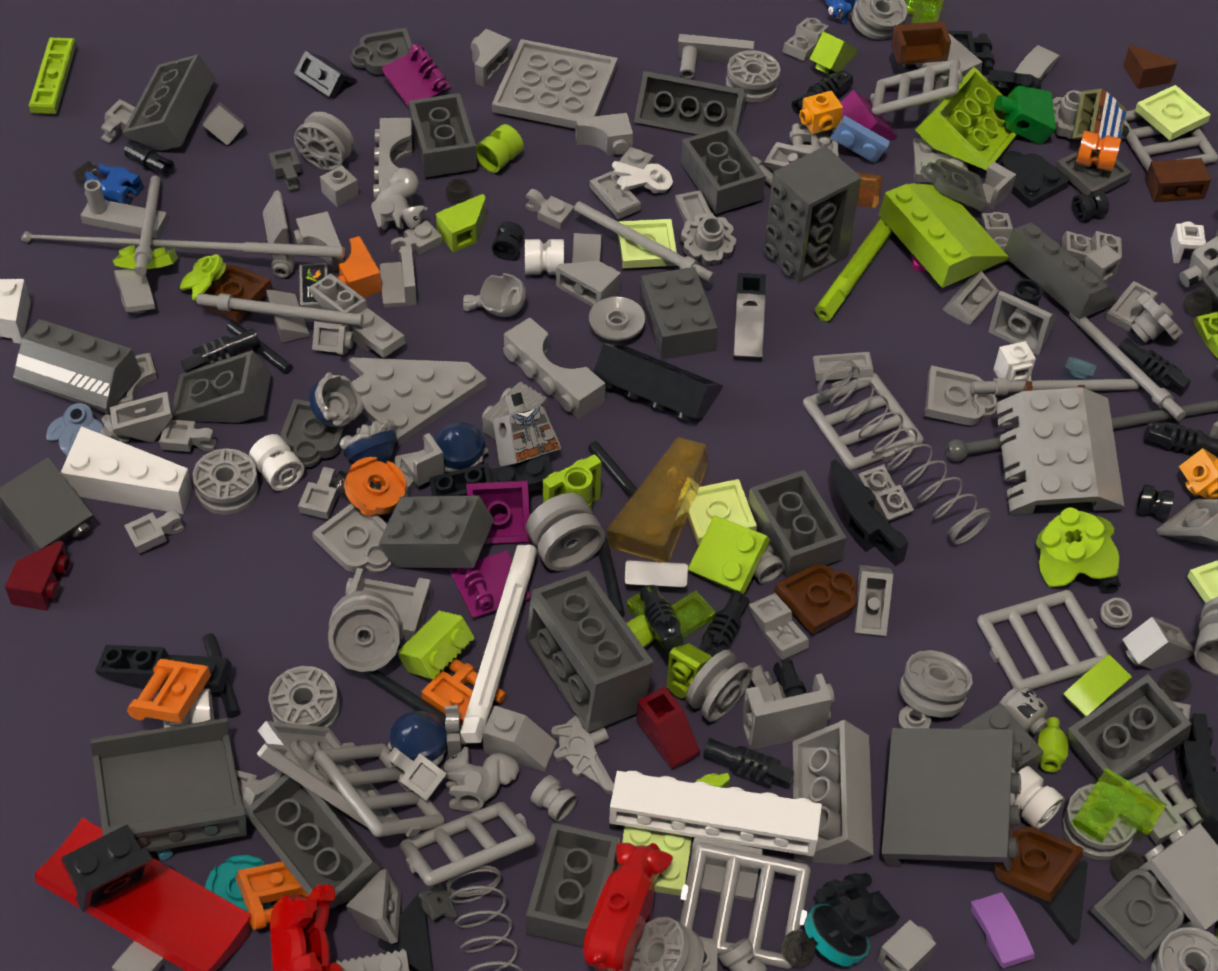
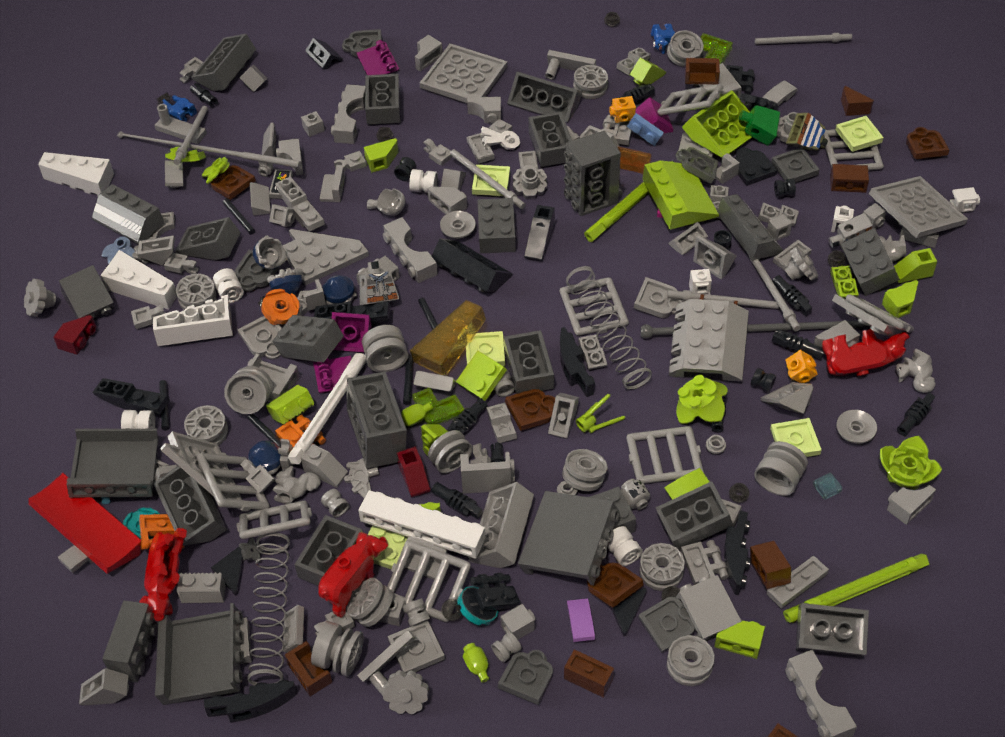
camera: 15 degrees right, 0 degrees up
(52, 75) = (160, 38): lime plate -> none
(106, 867) = (64, 500): black bracket -> none
(176, 696) = (127, 408): orange plate -> none
(220, 349) = (214, 214): black hinge -> none
(227, 302) = (225, 187): light grey bar -> none
(239, 531) = (194, 323): none -> white wedge
(286, 164) = (283, 107): dark grey plate -> none
(320, 497) = (248, 309): light grey plate -> none
(324, 141) = (308, 95): light grey wheel -> none
(360, 270) = (308, 177): orange arch -> none
(378, 907) = (216, 547): light grey slope -> none
(392, 201) = (339, 137): light grey animal -> none
(499, 148) = (415, 110): lime wheel -> none
(580, 478) = (403, 318): lime plate -> none
(661, 618) = (425, 406): black hinge -> none
(824, 362) = (600, 270): light grey tile -> none
(911, 603) = (587, 420): none -> lime plant
(1054, 744) = (647, 518): lime plant -> none
(1080, 368) = (743, 290): clear light blue plate -> none
(1107, 154) = (797, 153): orange wheel -> none
(1117, 798) = (669, 552): clear neon green plate -> none
(1157, 644) = (734, 466): light grey slope -> none

